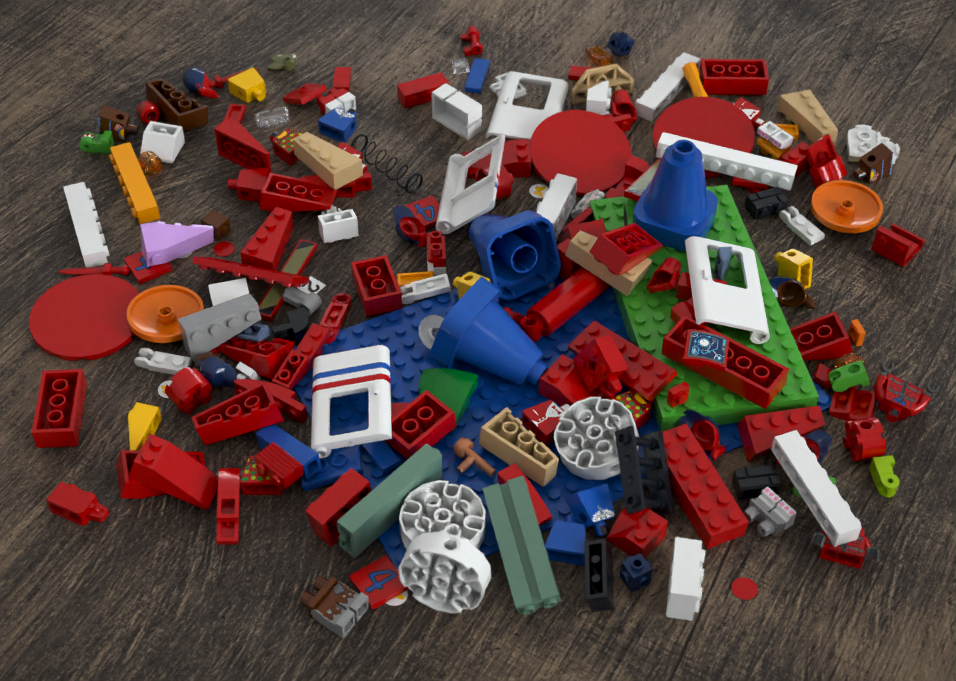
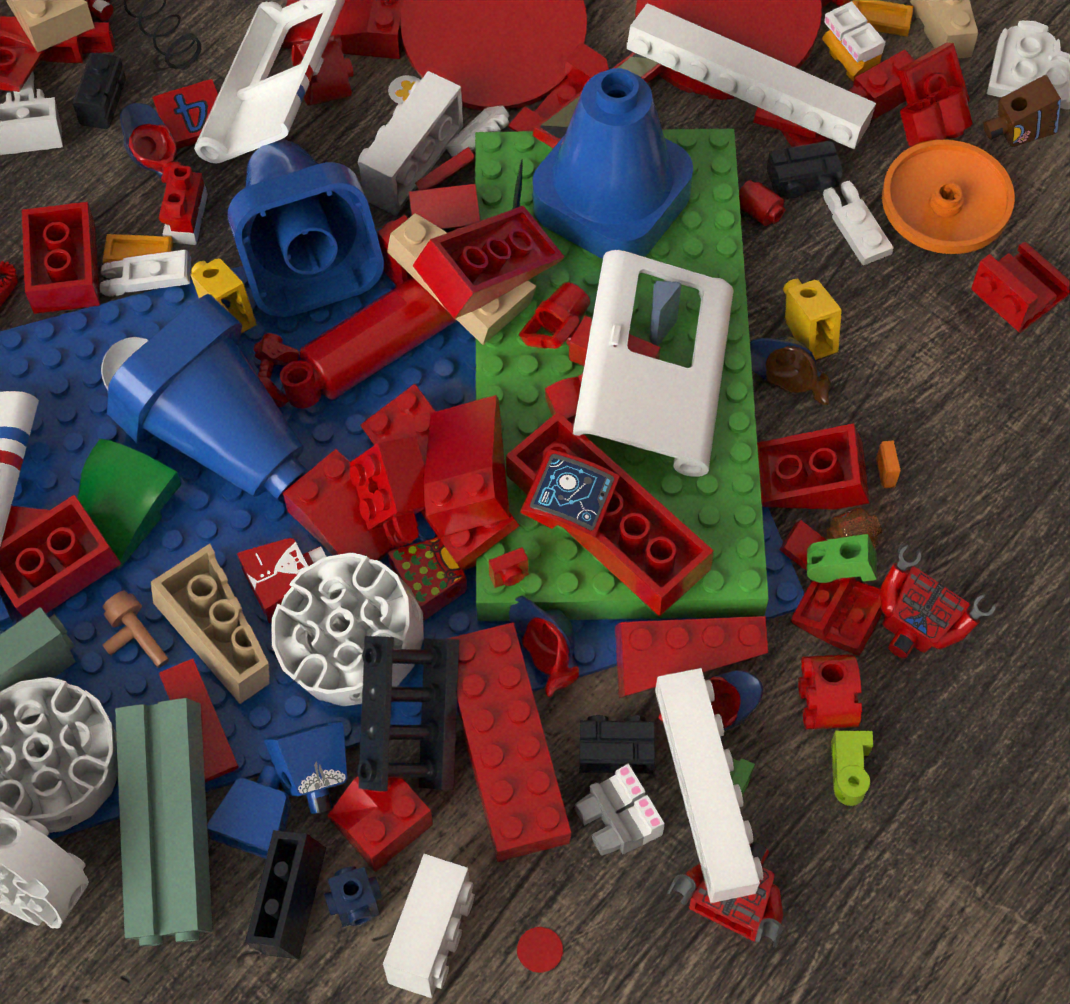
camera: 10 degrees right, 15 degrees up
(372, 206) = (99, 90): none -> black brick
(642, 349) = (466, 467): none -> red slope
(751, 221) = (761, 203): none -> red brick

